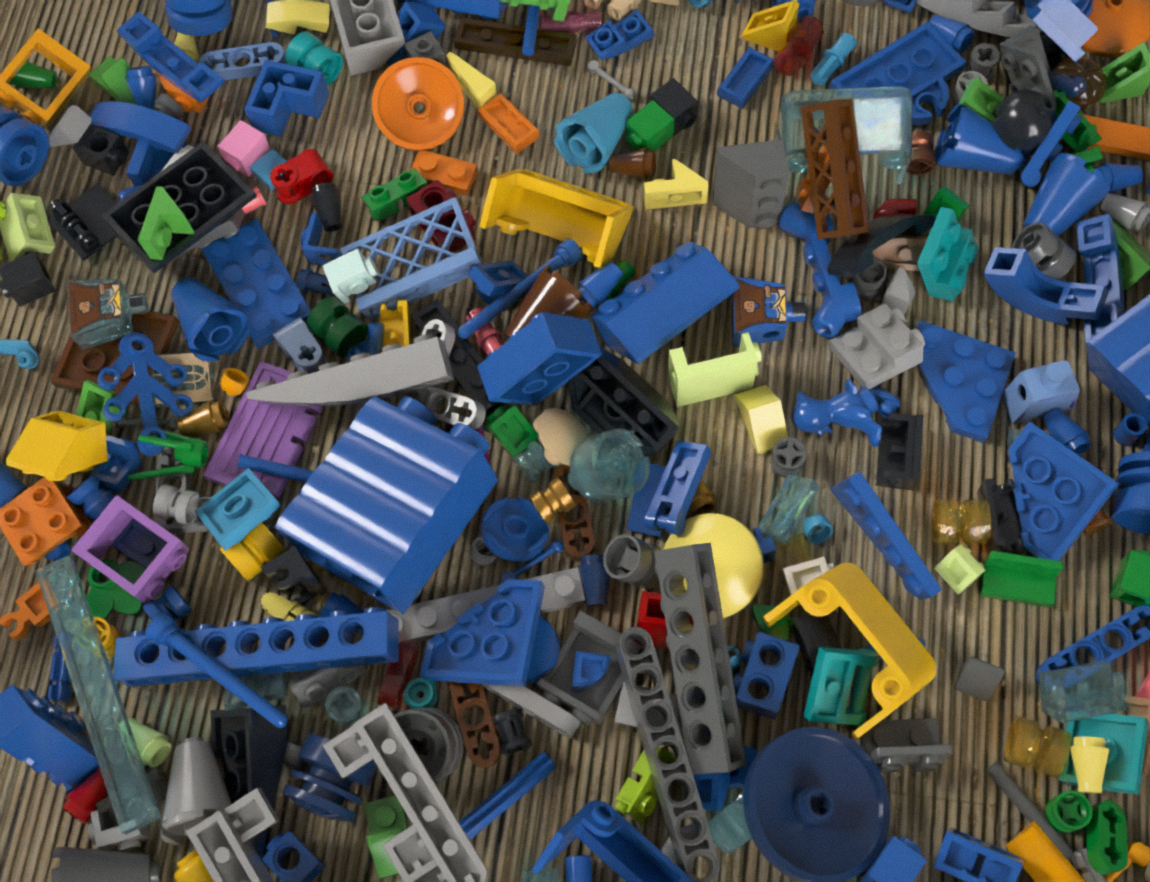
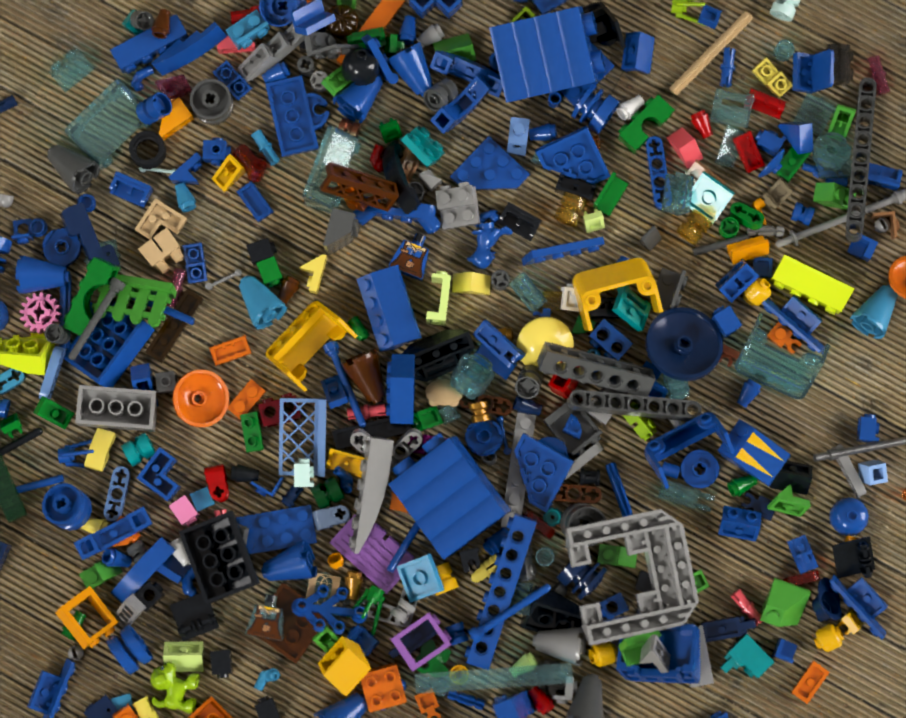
camera: 75 degrees left, 15 degrees up
(91, 497) = (380, 656): blue wheel -> none
(160, 222) = (231, 565): bright green slope -> none
(473, 83) = (197, 360): light yellow slope -> none
(599, 284) = (364, 340): blue cone -> none
(820, 535) = (544, 282): dark azure hinge -> none
(1069, 85) = (342, 35): dark blue arm -> none
(1089, 763) = (712, 208): light yellow cone -> none

